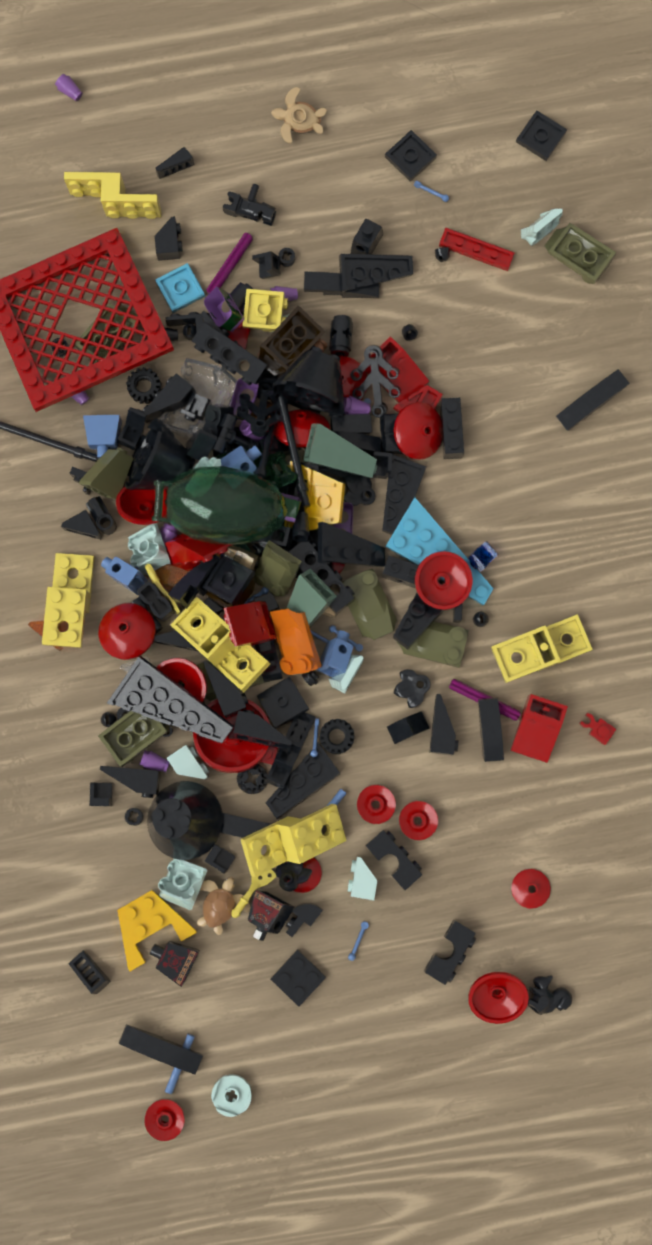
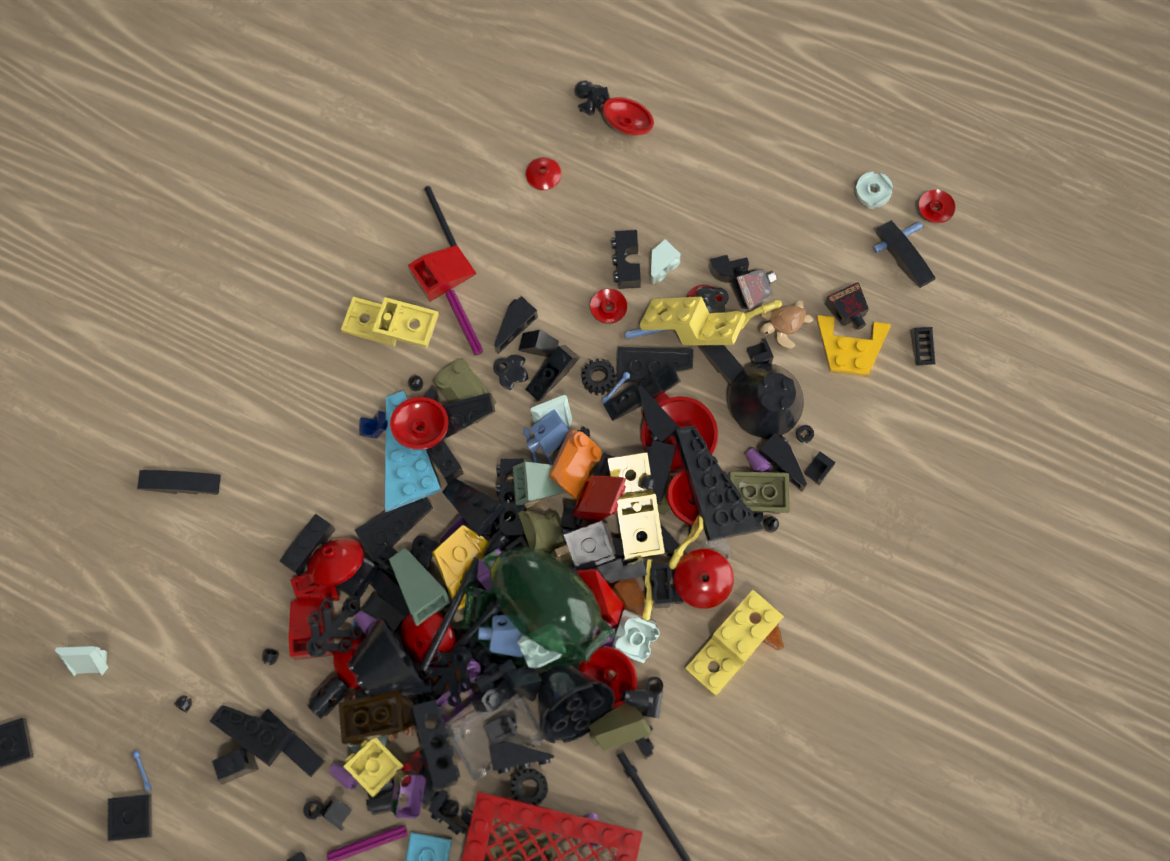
camera: 140 degrees left, 10 degrees down
(82, 525) = (675, 701): black slope -> none
(102, 432) = (597, 771): medium blue torso -> none
(108, 501) = (638, 698): none -> black cone
(124, 573) = (670, 621): medium blue torso -> none
(133, 428) = (570, 752): black bracket -> none
(154, 652) = (696, 529): none -> light yellow piece
(182, 883) = (802, 356): light aqua slope -> none
(186, 764) = (733, 440): light aqua slope -> none
(223, 666) = (647, 482): none -> black hinge
(250, 788) = (696, 389): black gear -> none
(282, 702) = (620, 432): black plate -> none
(298, 978) = (763, 232): black plate -> none
(364, 925) = (685, 233): medium blue hinge -> none
(370, 605) = (493, 443): olive slope -> none
(377, 711) = (552, 372): none -> black slope
(428, 824) = (584, 265): red dish -> none
(443, 968) = (650, 163): black arch -> none
(476, 249) = (152, 686): red tile -> none
(490, 730) = (478, 295): black slope -> none
(580, 252) = (75, 611): olive slope -> none
(583, 778) = (442, 221): none -> black bar
(599, 730) = (399, 241): red plate -> none

